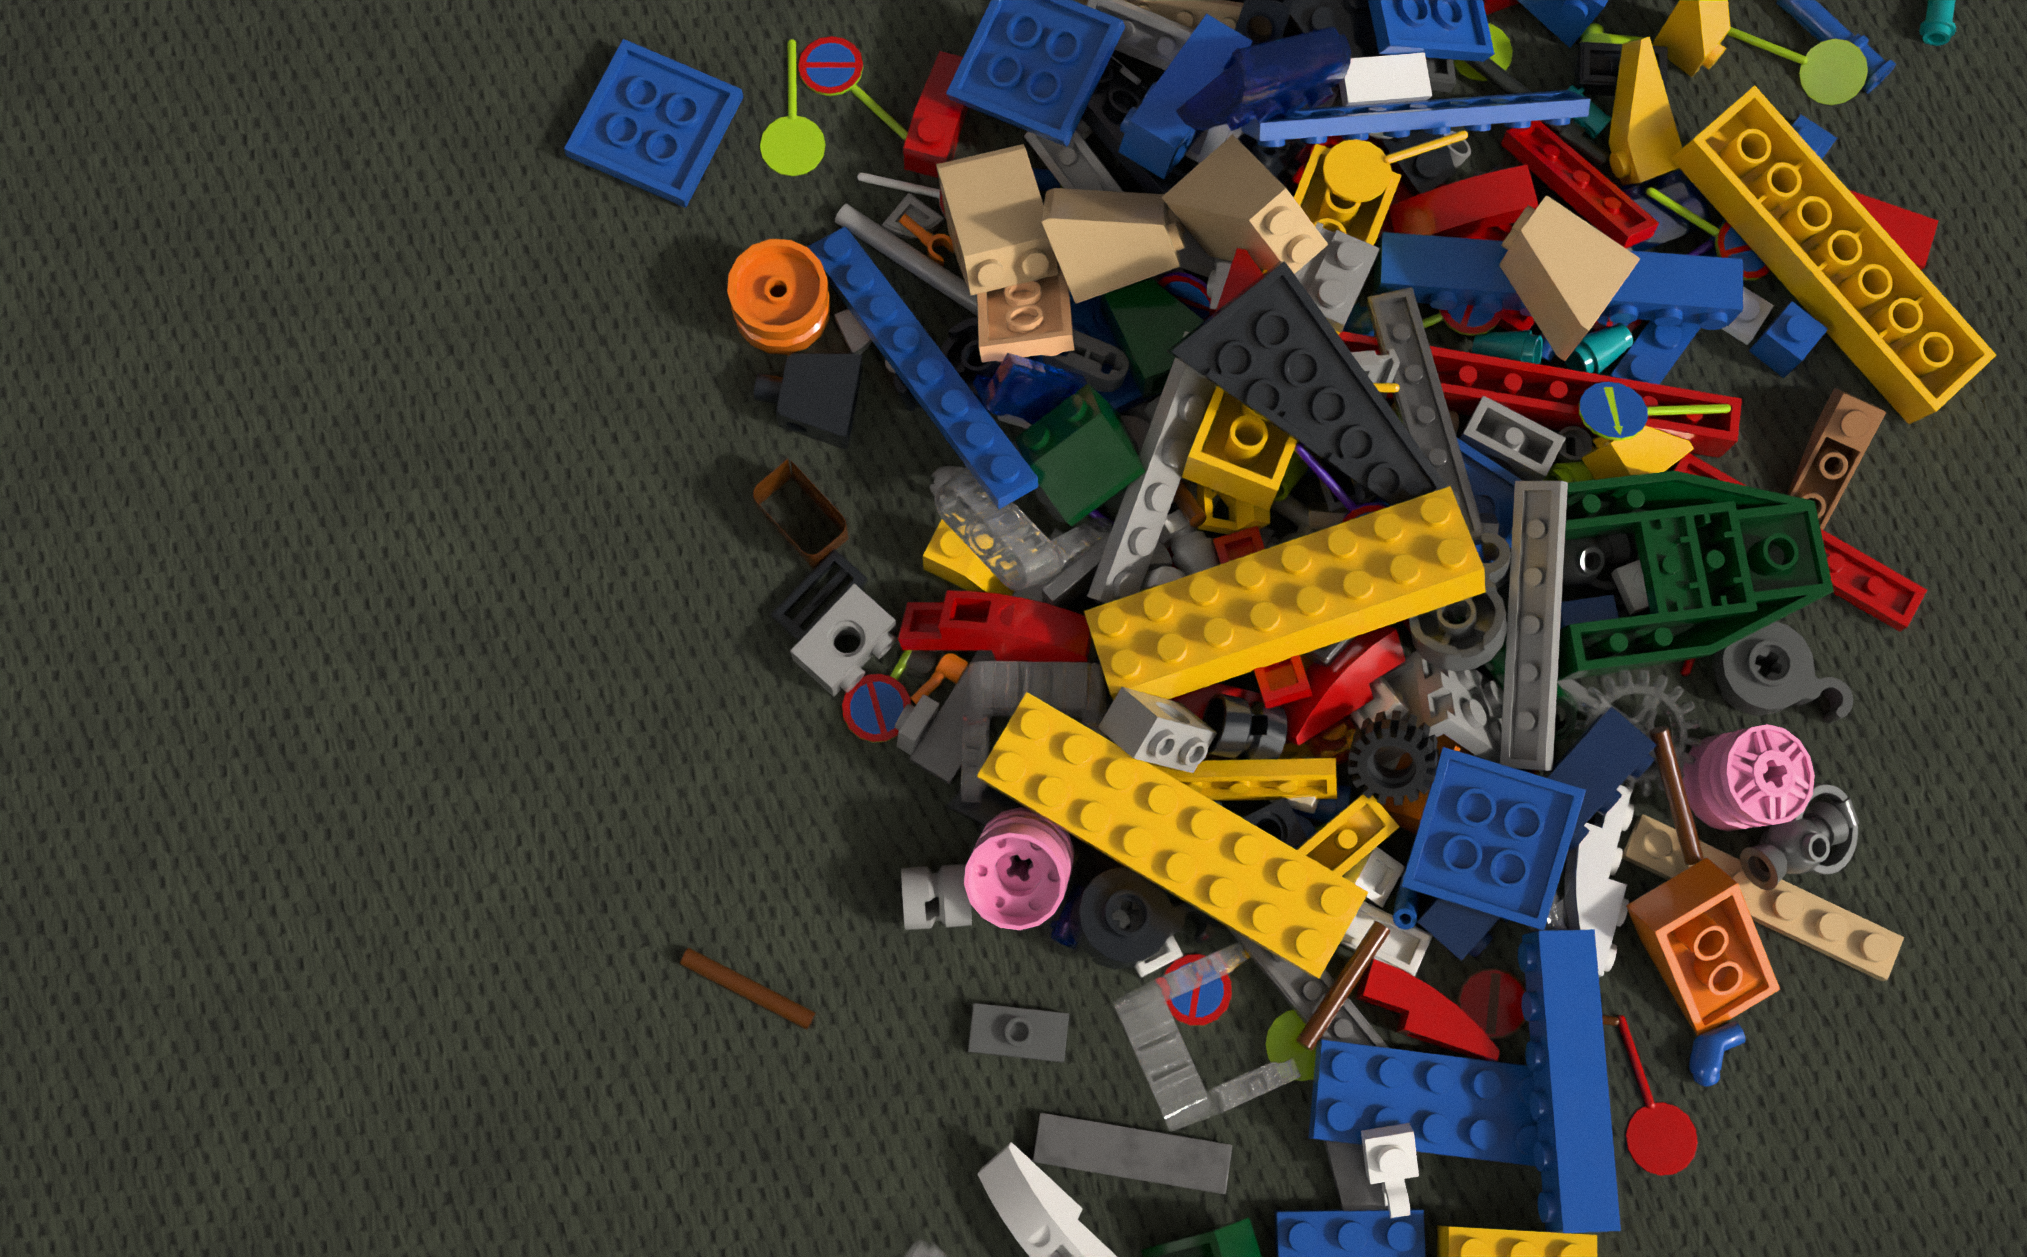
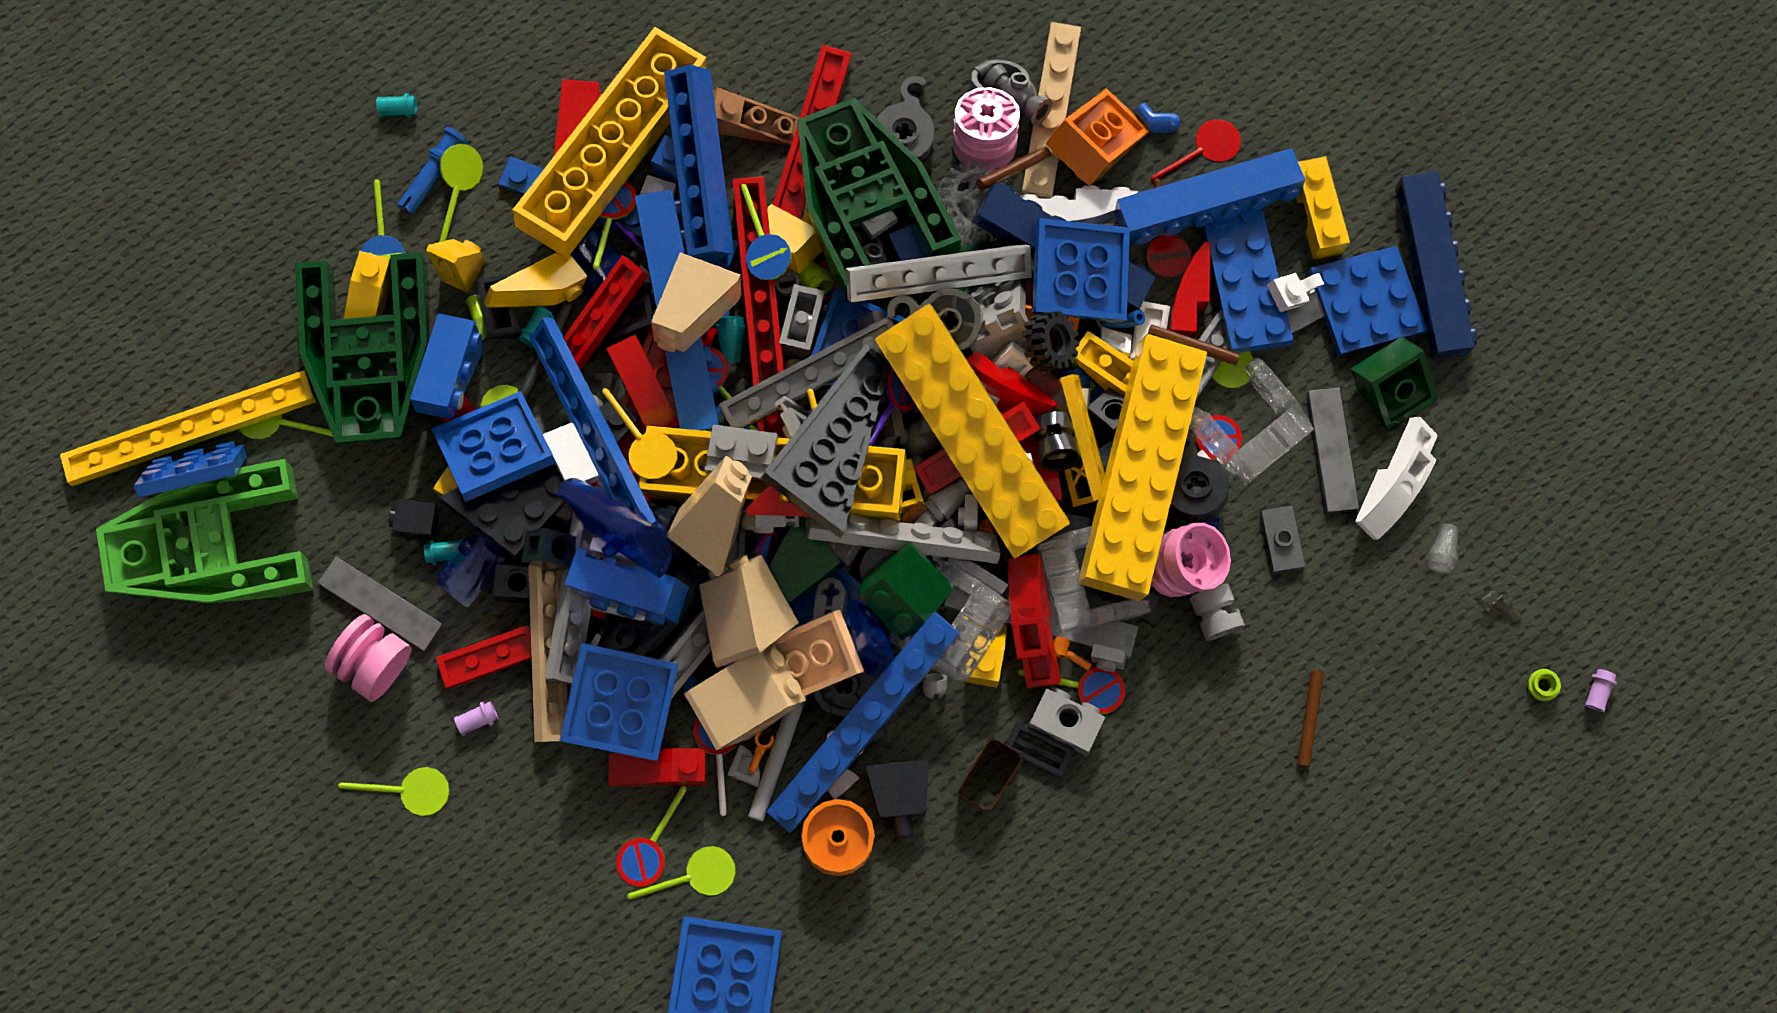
camera: 105 degrees left, 0 degrees up
(1157, 730) = (1080, 490): light grey brick -> none
(1778, 352) = (698, 162): none -> blue brick

